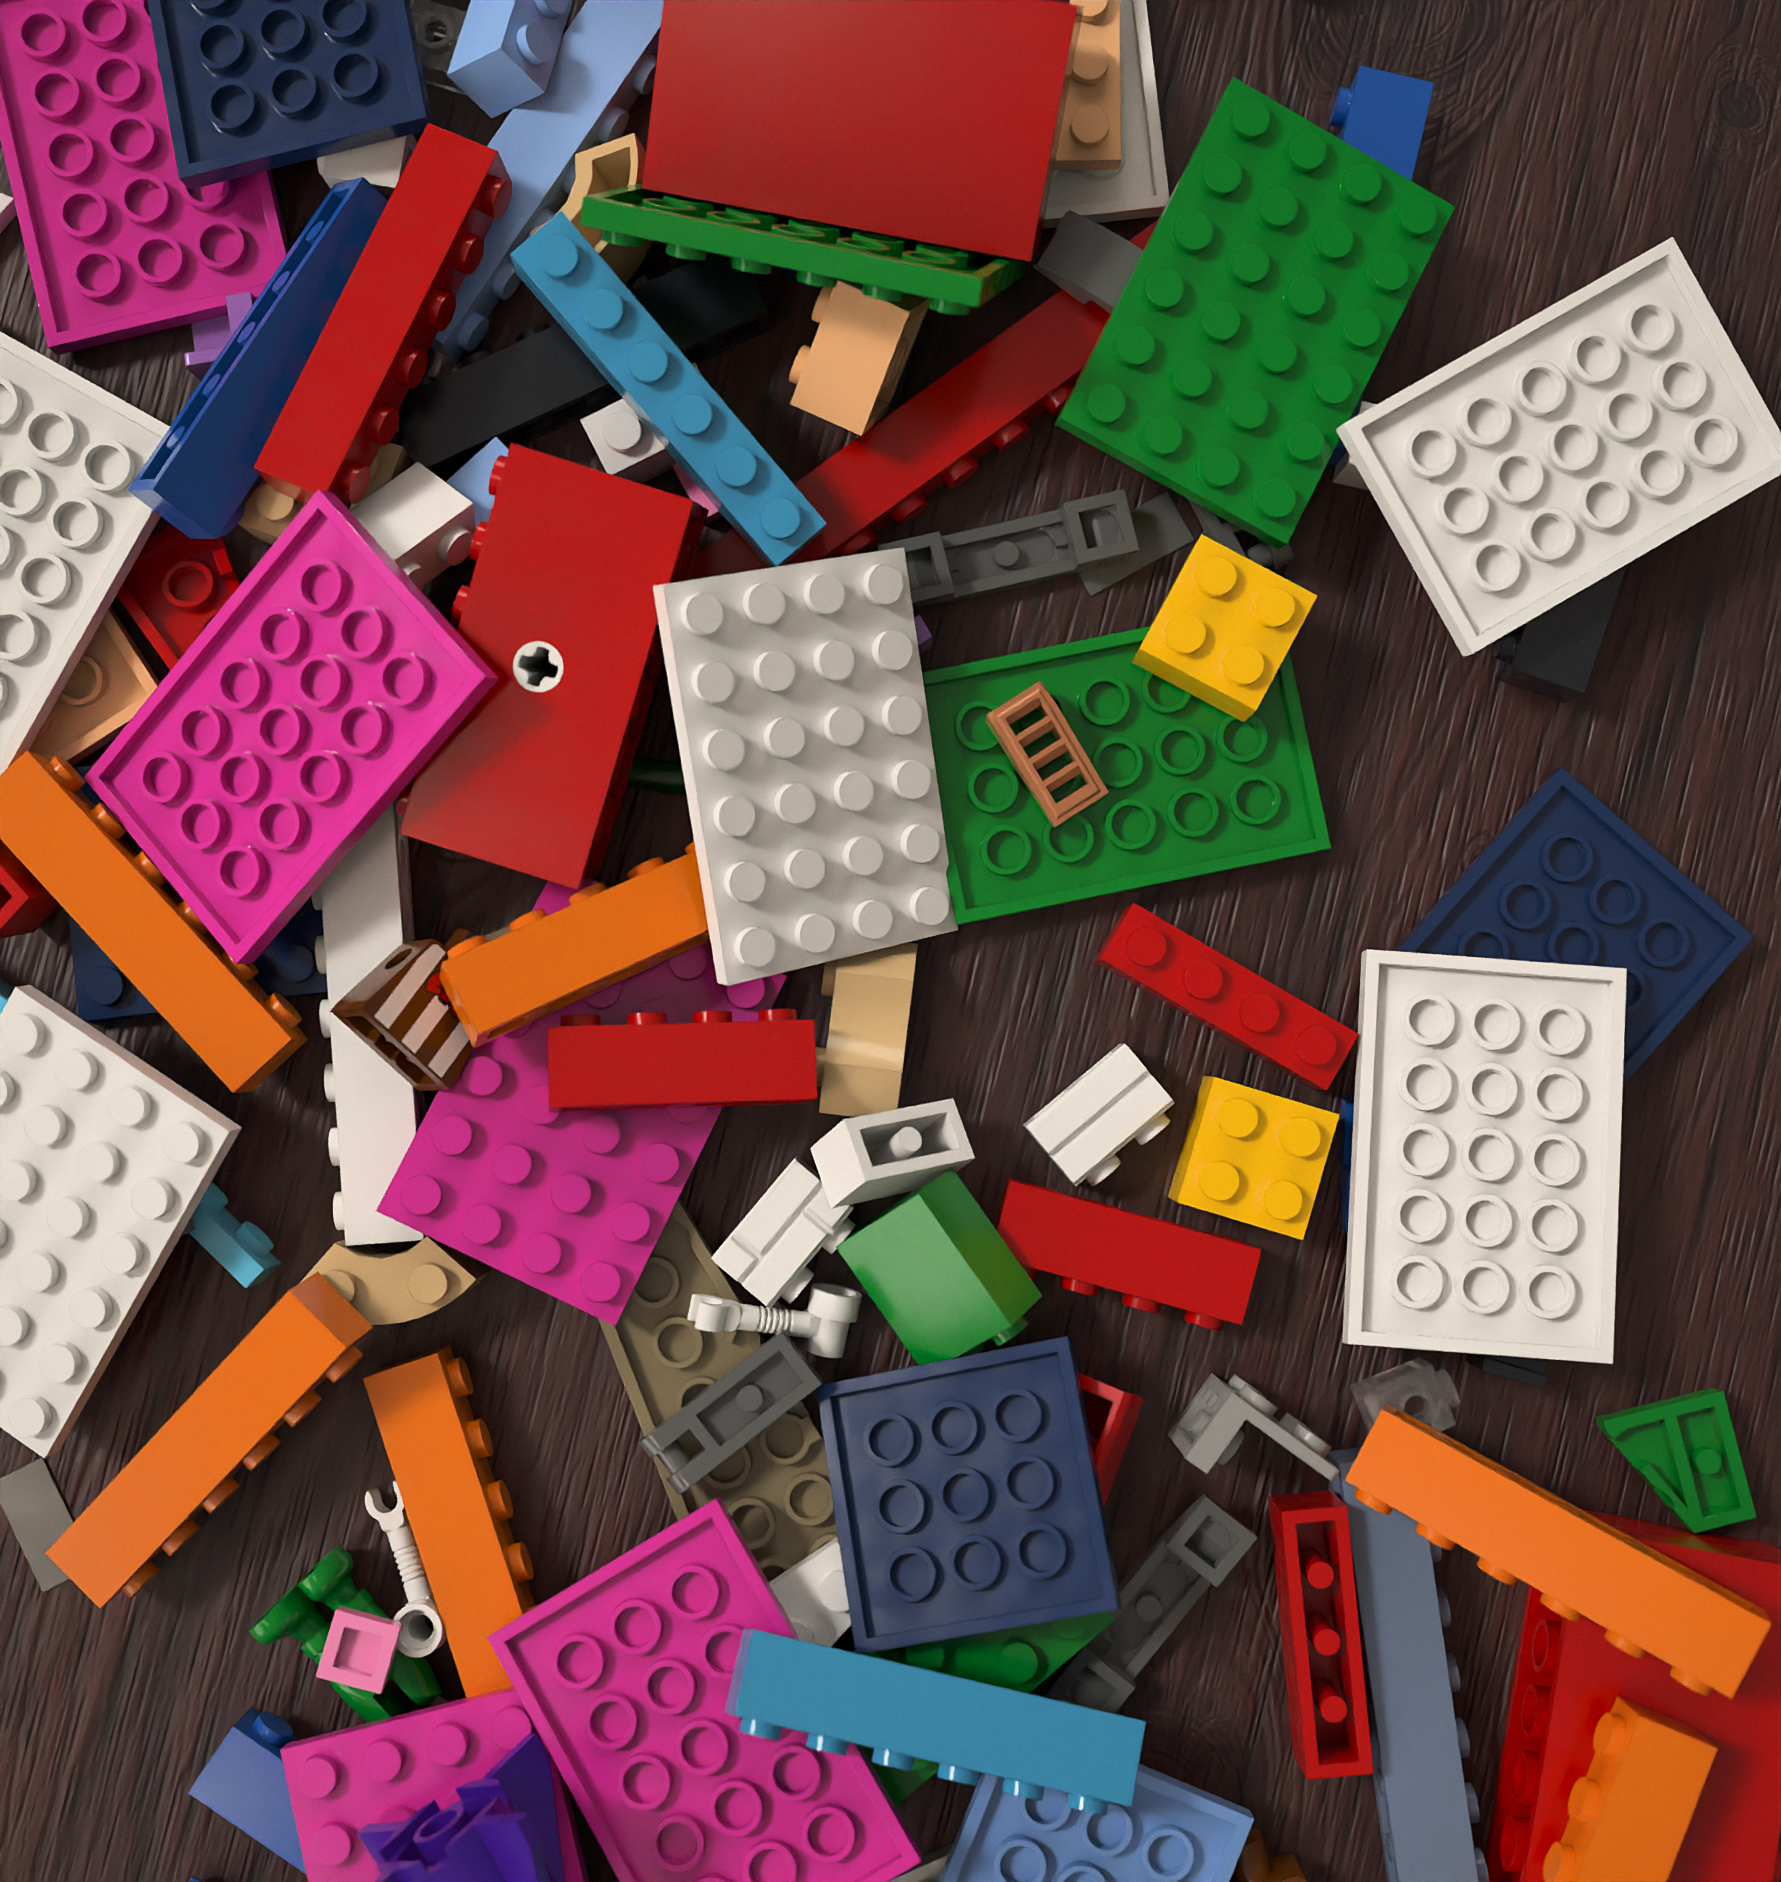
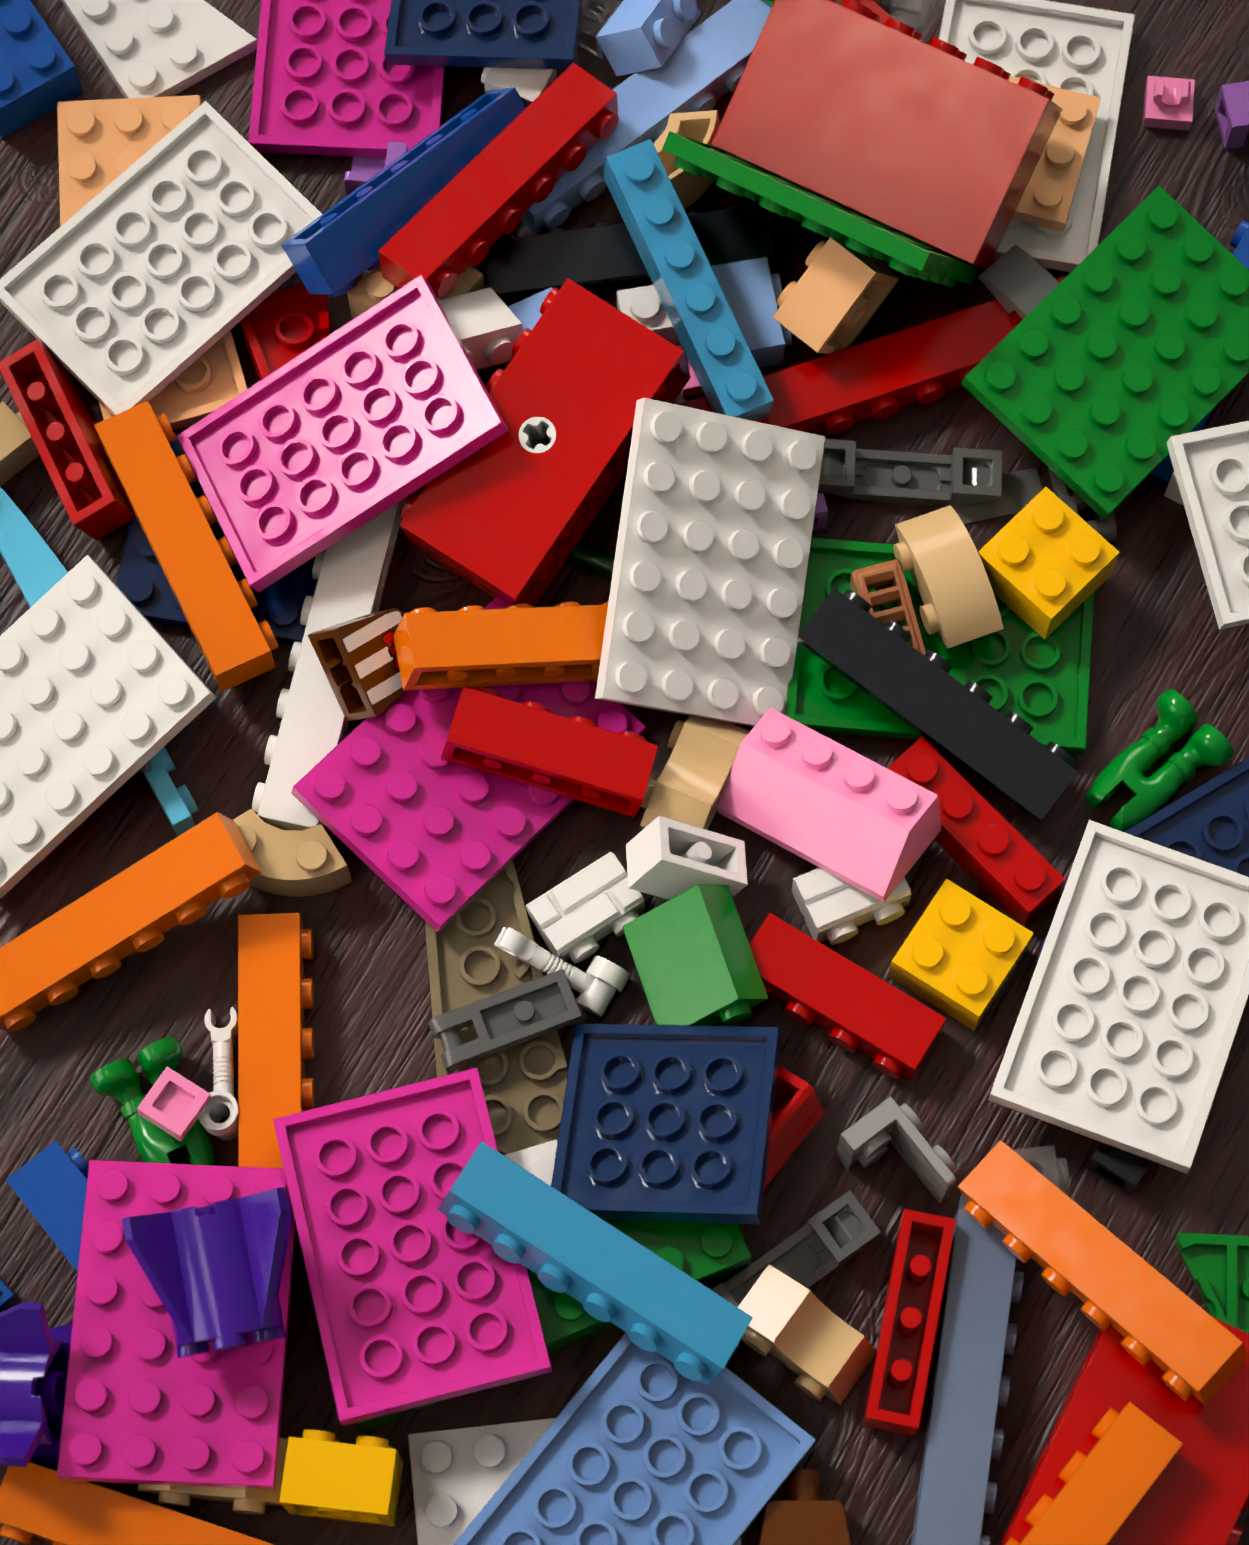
camera: 20 degrees right, 15 degrees down
(750, 378) = (753, 299): none -> light blue brick
(1044, 1026) = (829, 804): none -> bright pink slope
(1108, 684) = (948, 577): none -> tan brick
(1141, 857) = (938, 705): none -> black brick
(1197, 1684) = (804, 1336): none -> tan brick
(1426, 877) = (1175, 721): none -> green piece

